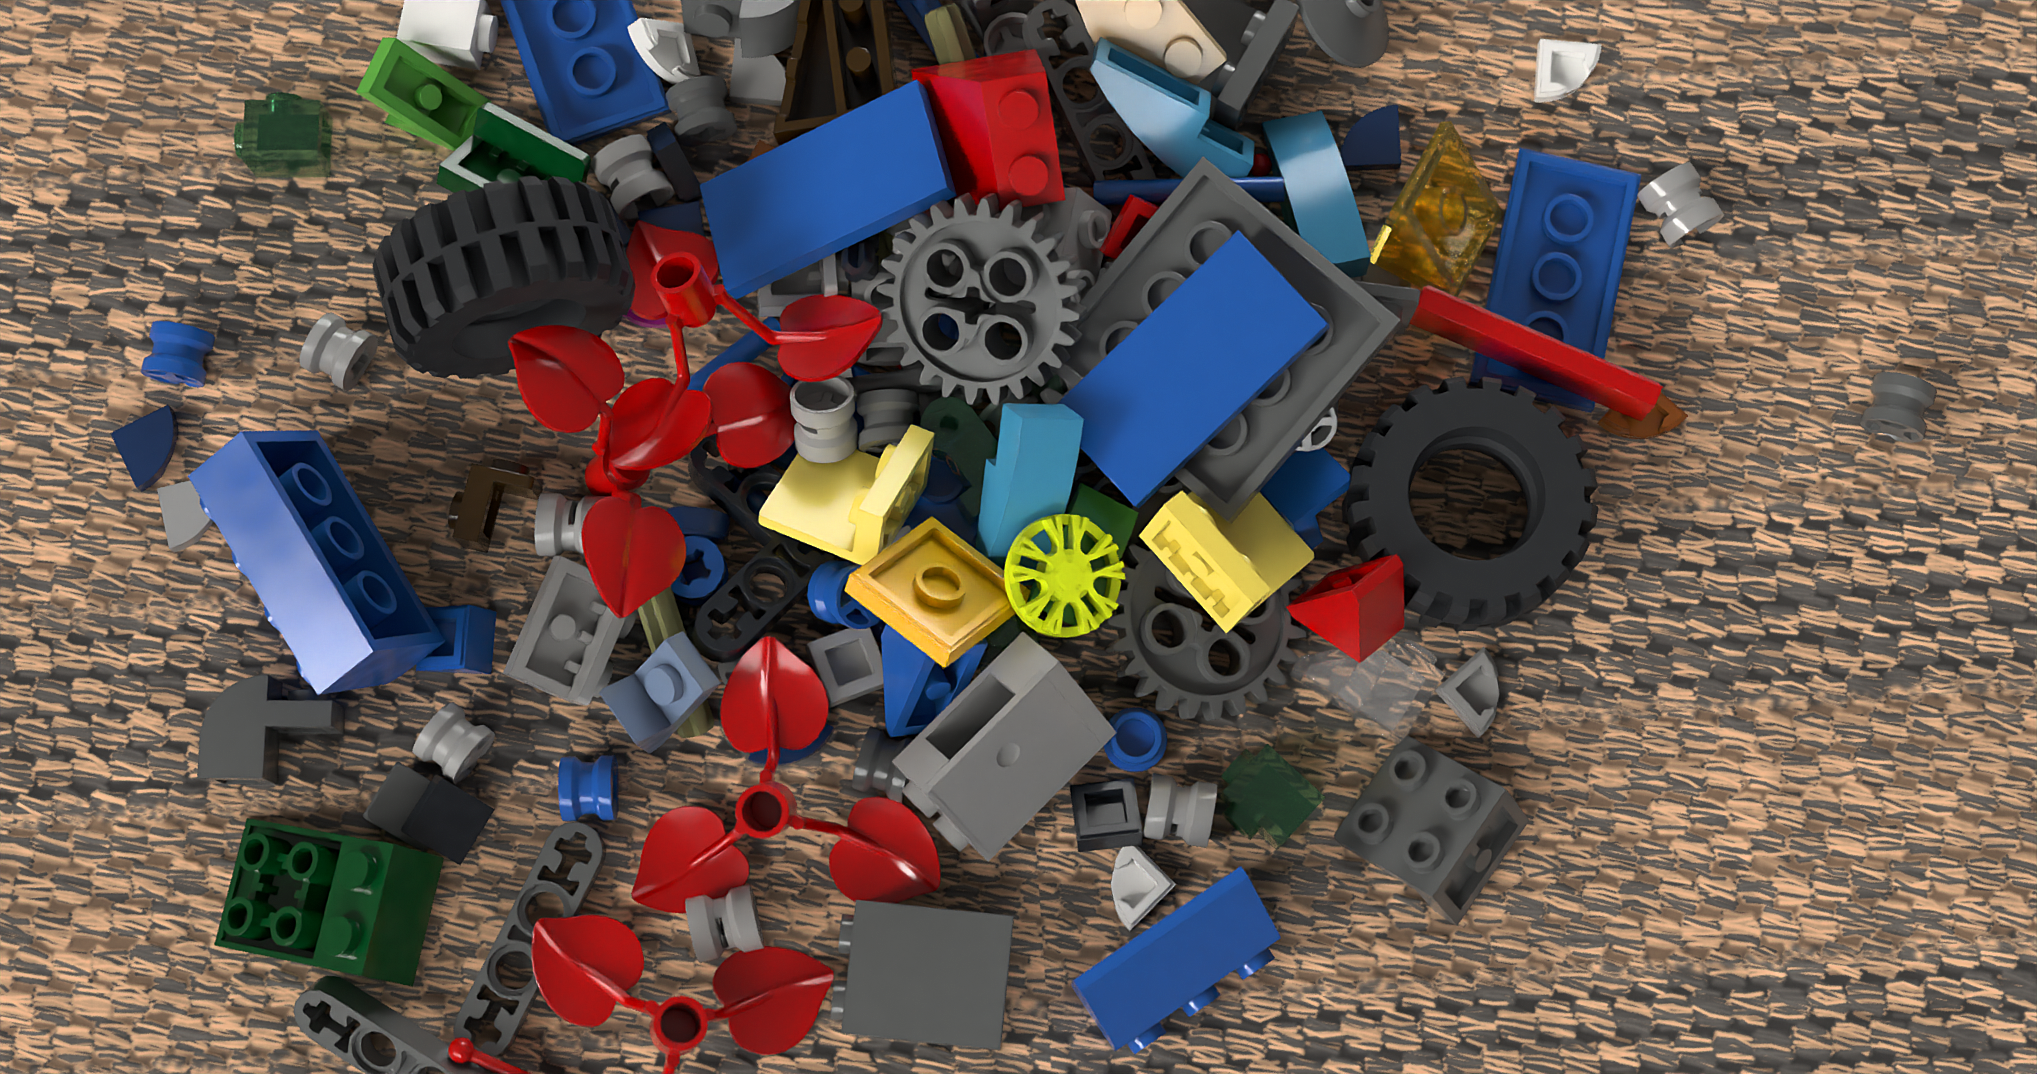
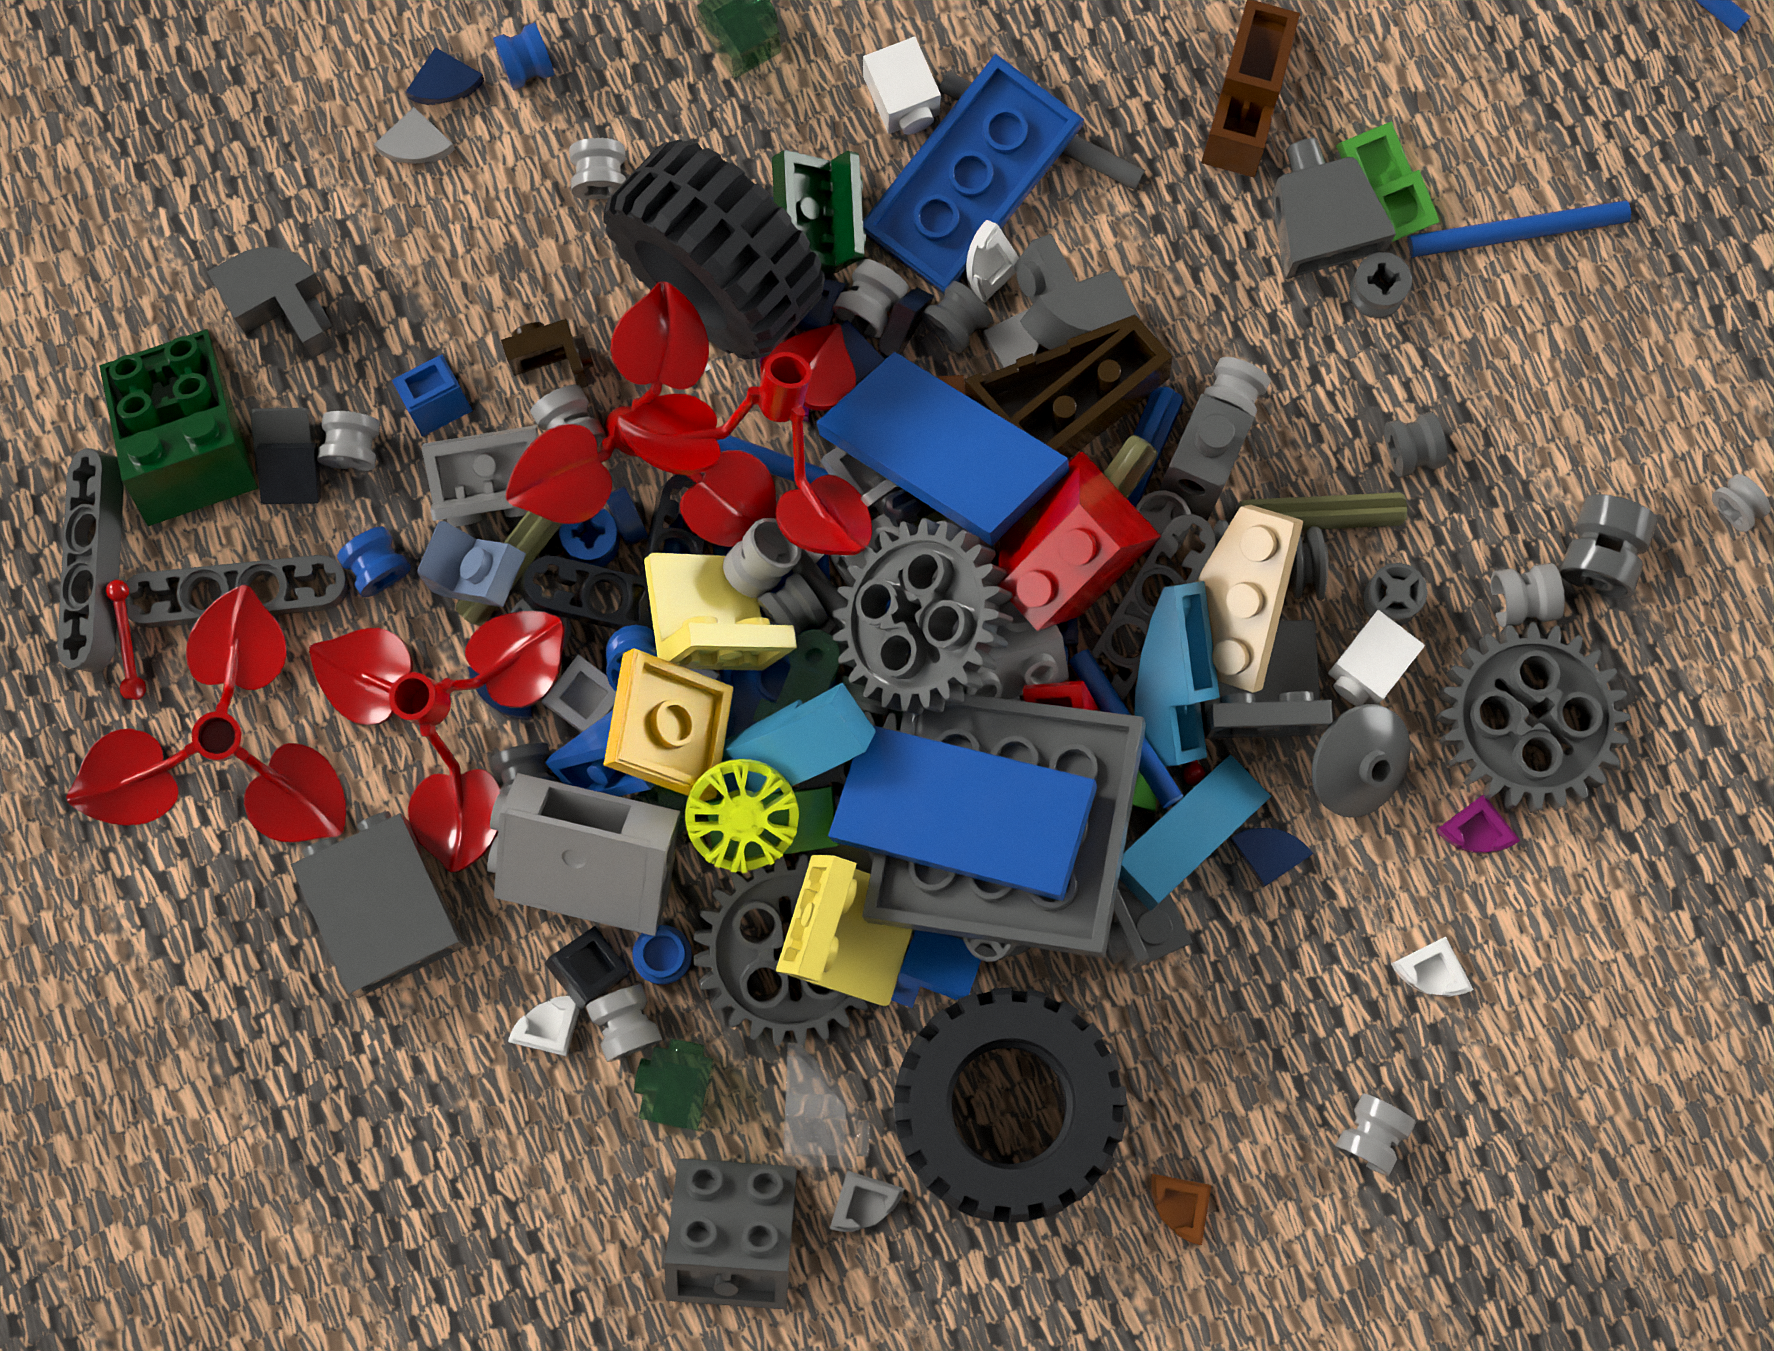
camera: 55 degrees right, 0 degrees up
(315, 559) = (420, 252): blue brick -> none
(420, 95) = (833, 102): bright green slope -> none
(739, 921) = (329, 726): light grey wheel -> none
(1178, 962) = (496, 1092): blue slope -> none
(1355, 606) = (863, 1062): red slope -> none
(1438, 218) = (1233, 942): clear yellow slope -> none
(1535, 353) = (1168, 1085): red tile -> none
(1559, 261) = (1249, 1068): blue tile -> none

